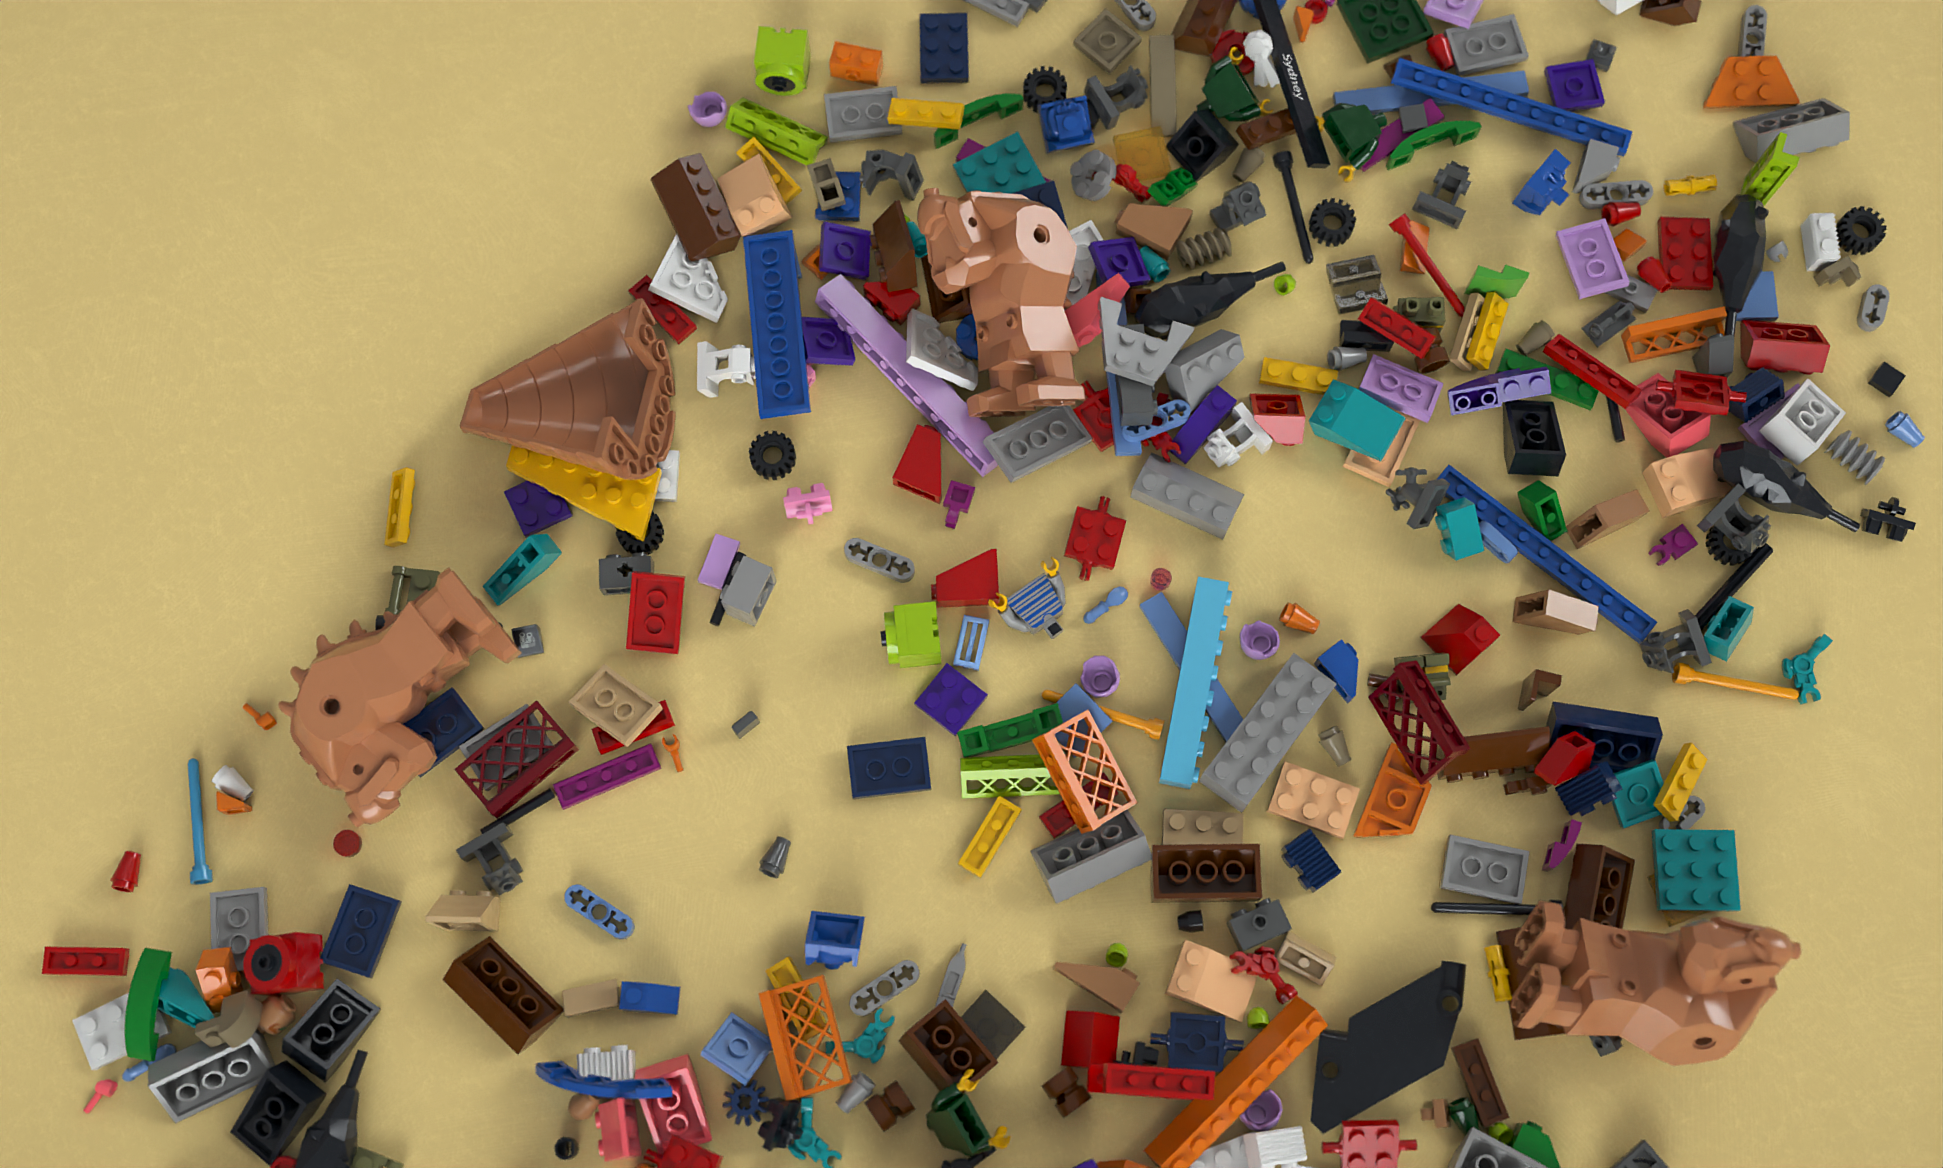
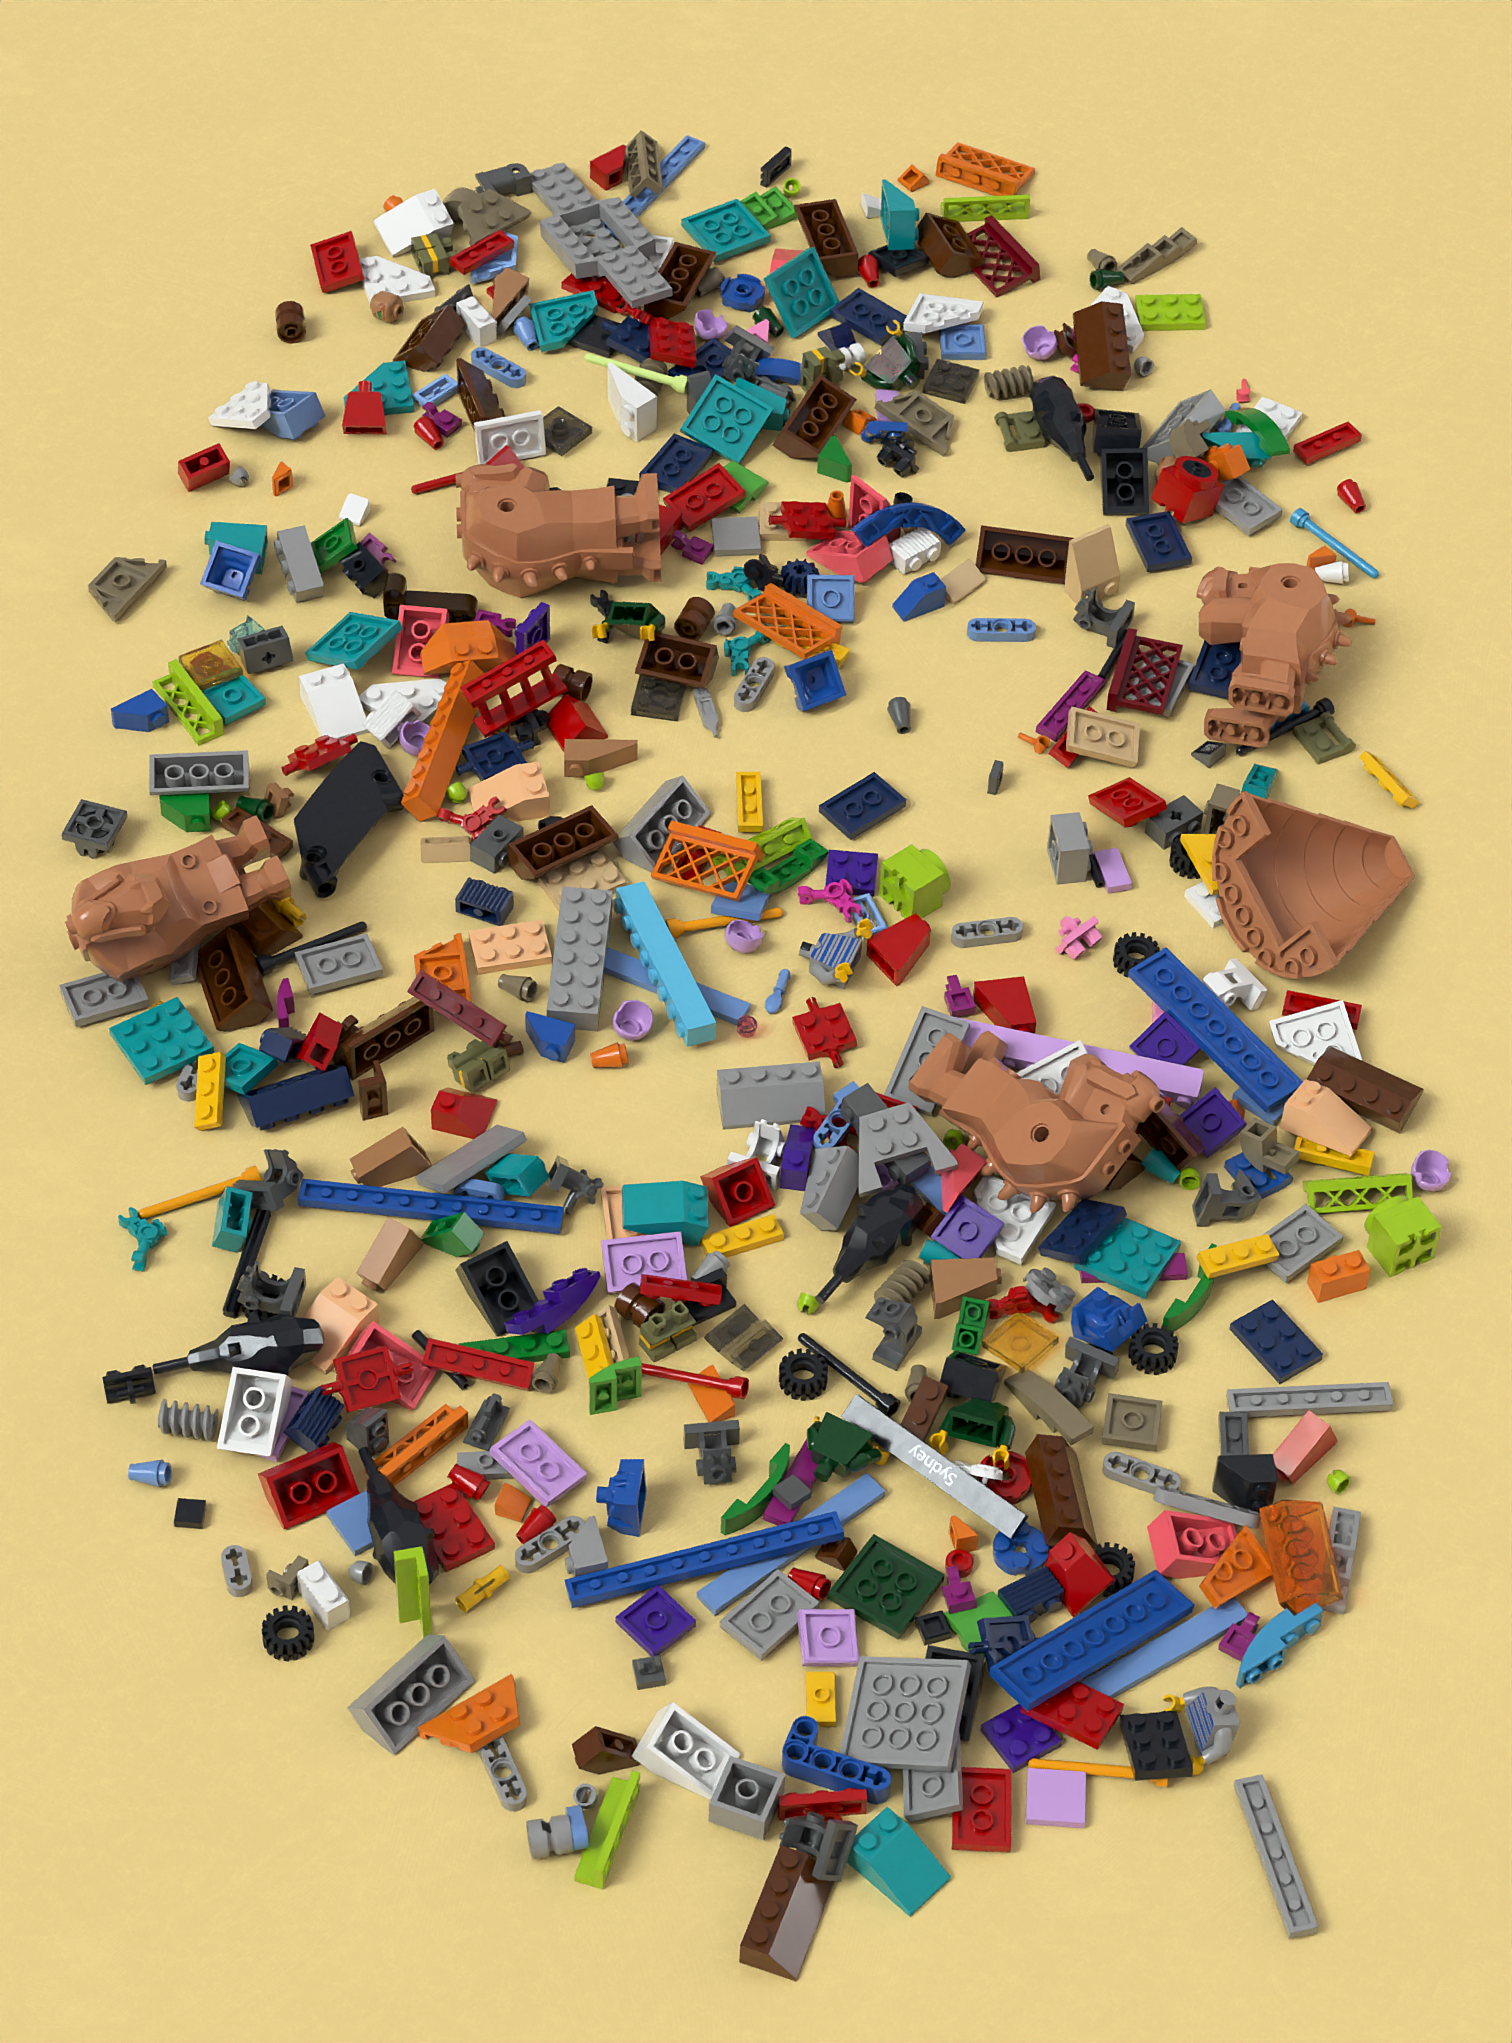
camera: 145 degrees right, 25 degrees down
(581, 548) = (1217, 807): none -> dark tan brick
(987, 672) = (835, 894): none -> dark pink piece
(1486, 574) = (471, 1158): none -> light grey tile
(1675, 543) = (319, 1274): magenta plate -> none

